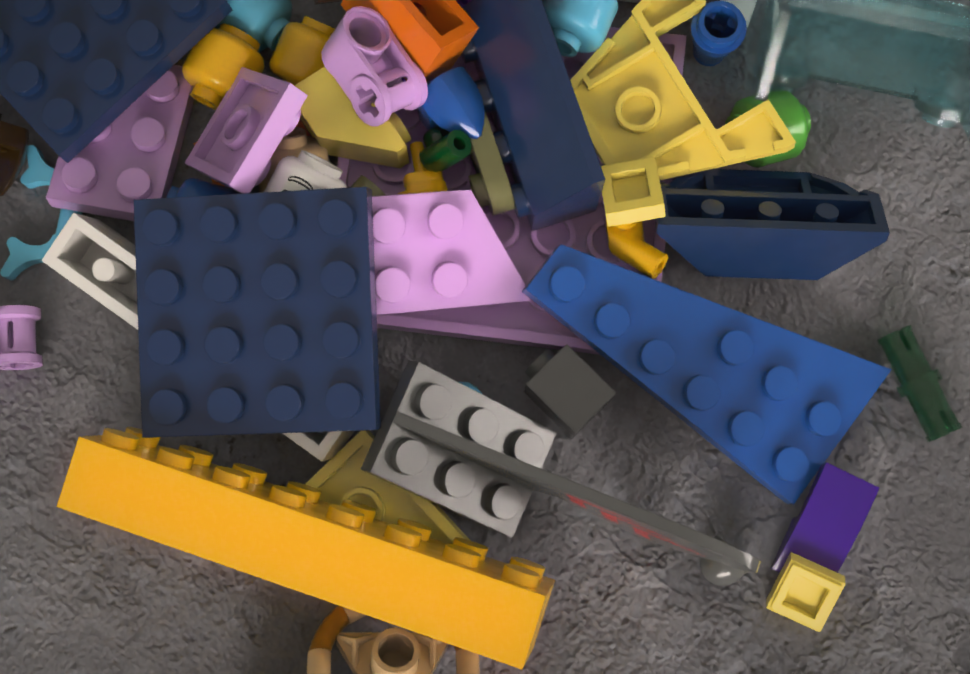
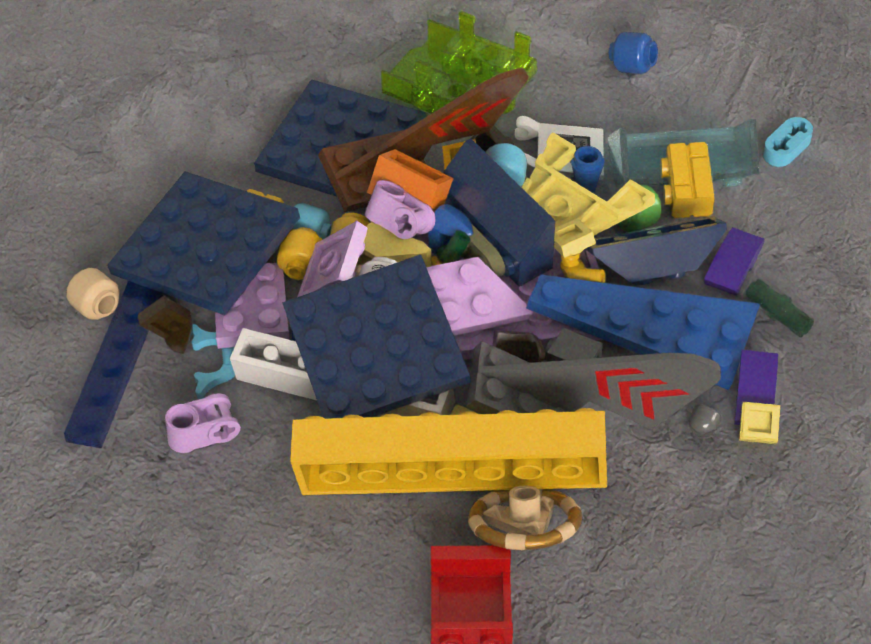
camera: 15 degrees left, 30 degrees down
(486, 360) = (520, 344): none -> dark brown plate
(869, 98) = (688, 180): none -> yellow brick
(884, 273) = (733, 261): none -> dark purple slope

